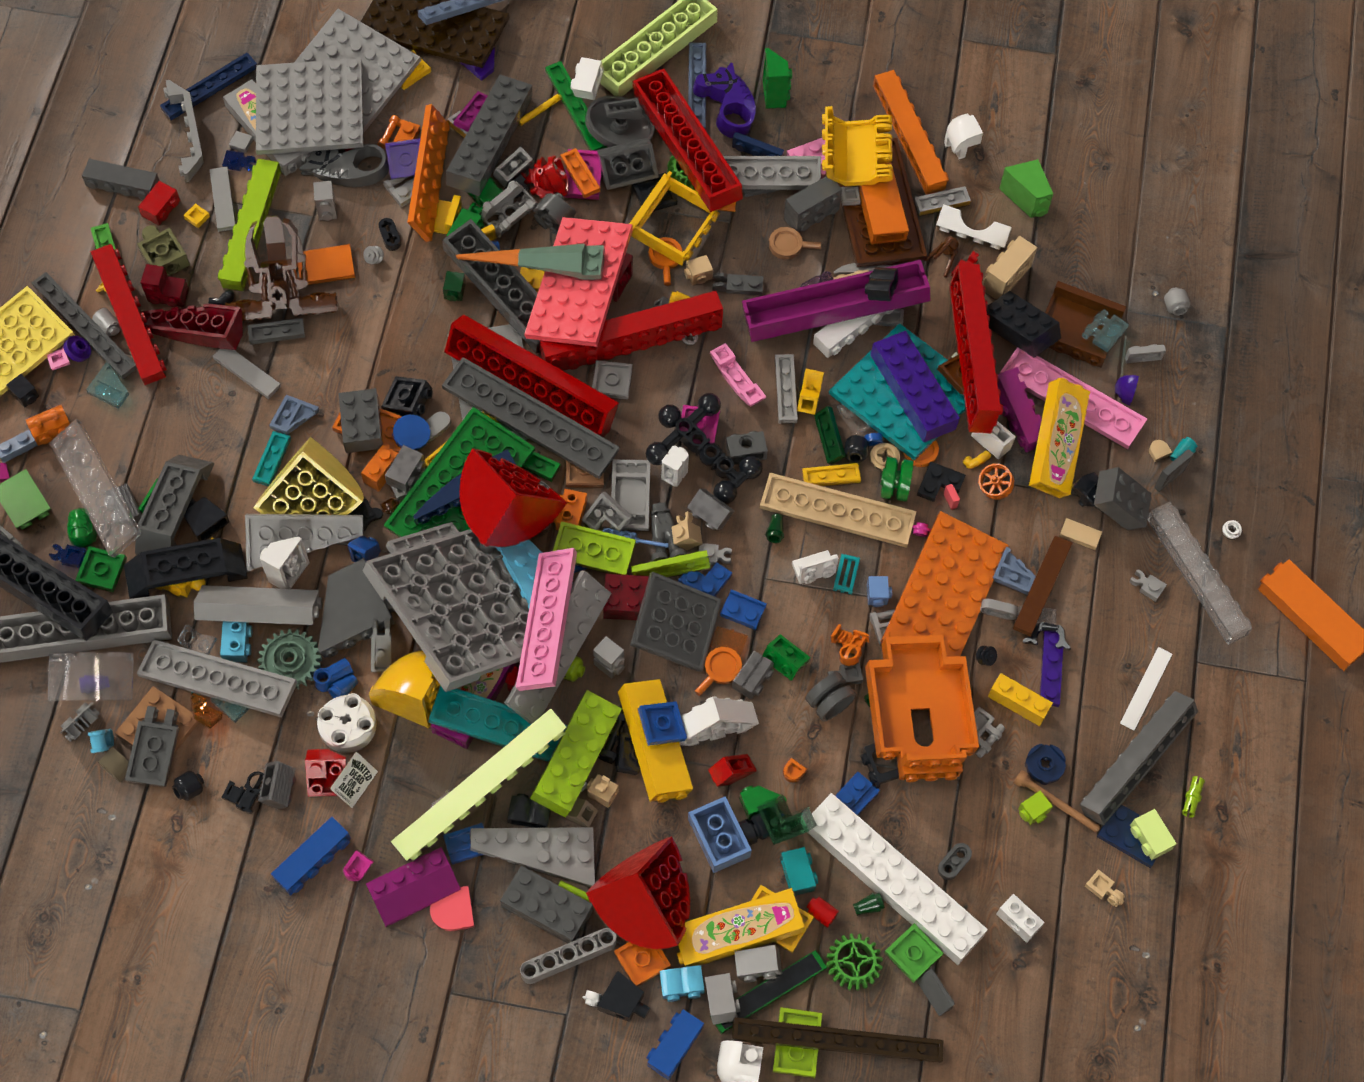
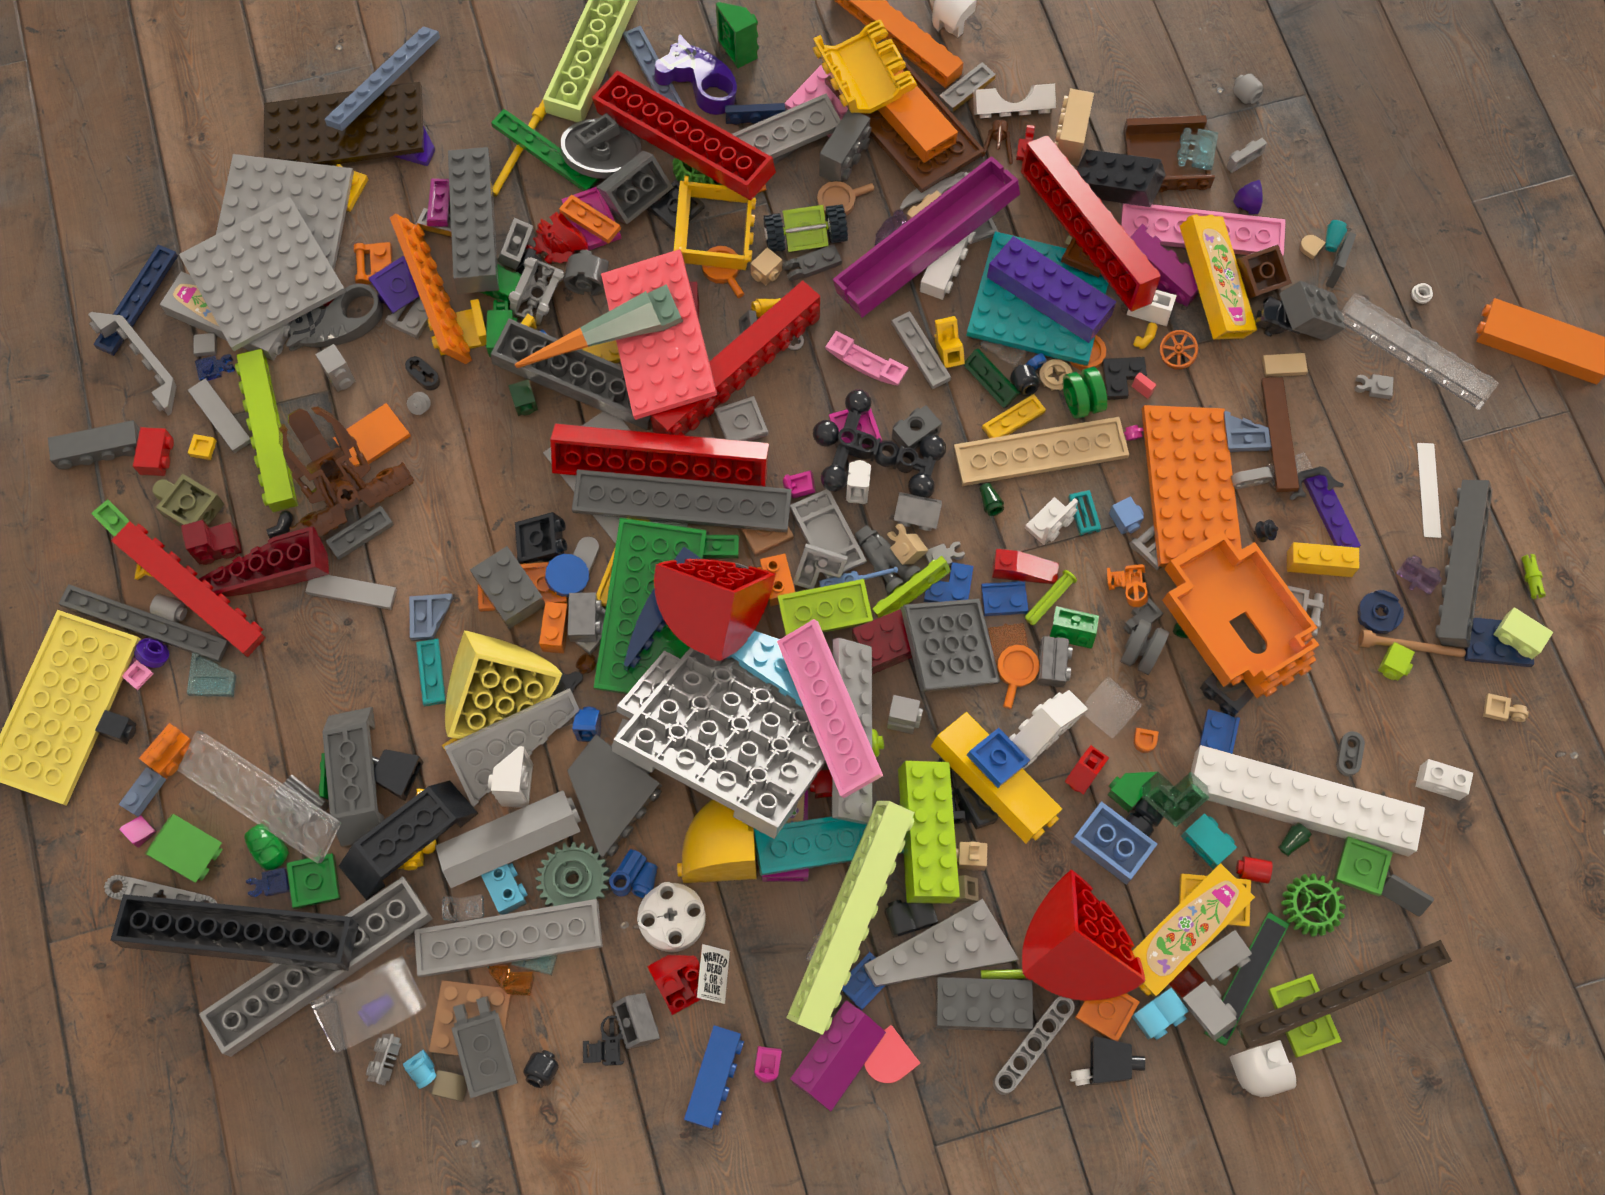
camera: 25 degrees left, 5 degrees up
(380, 647) = (664, 819): dark grey hinge -> none
(587, 78) = (544, 115): white brick -> none
(630, 447) = (801, 484): none -> dark pink plate
(674, 1044) = (1188, 1081): blue brick -> none
(719, 967) = (1186, 981): none -> clear red slope
(745, 253) = (805, 228): none -> plate
(771, 592) = (1023, 567): none -> red slope
(779, 732) = (1111, 707): none -> clear slope
(780, 625) = (1050, 597): none -> lime axle
(850, 196) = (878, 121): light grey tile -> none
(882, 284) = (969, 198): black brick -> none
(1027, 188) = (1046, 37): bright green slope -> none
(1094, 750) = (1418, 575): none -> hips
(1100, 450) = (1263, 271): none -> reddish brown brick

